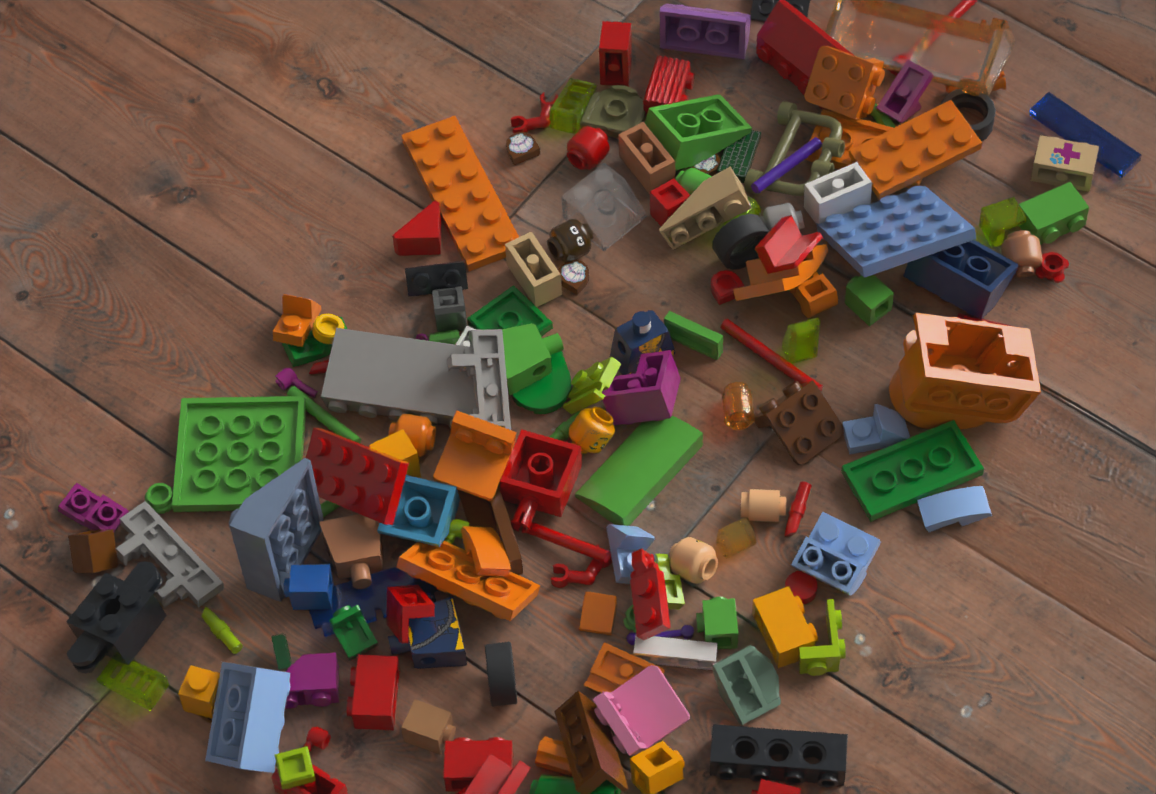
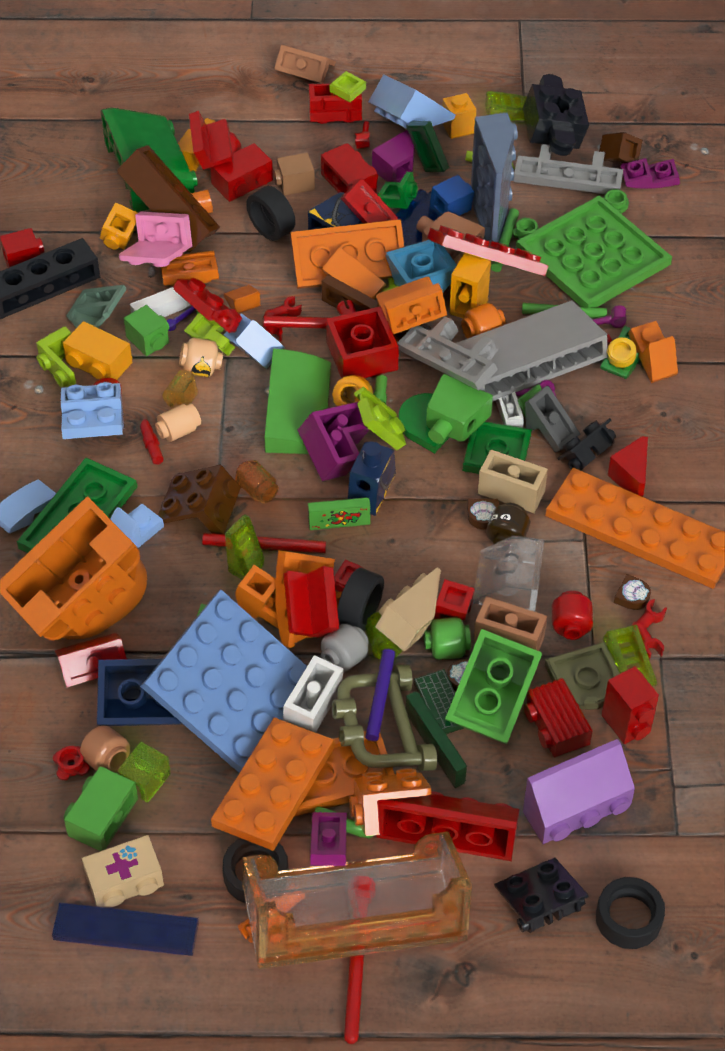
camera: 140 degrees right, 5 degrees down
(768, 124) = (432, 732): none -> dark green tile

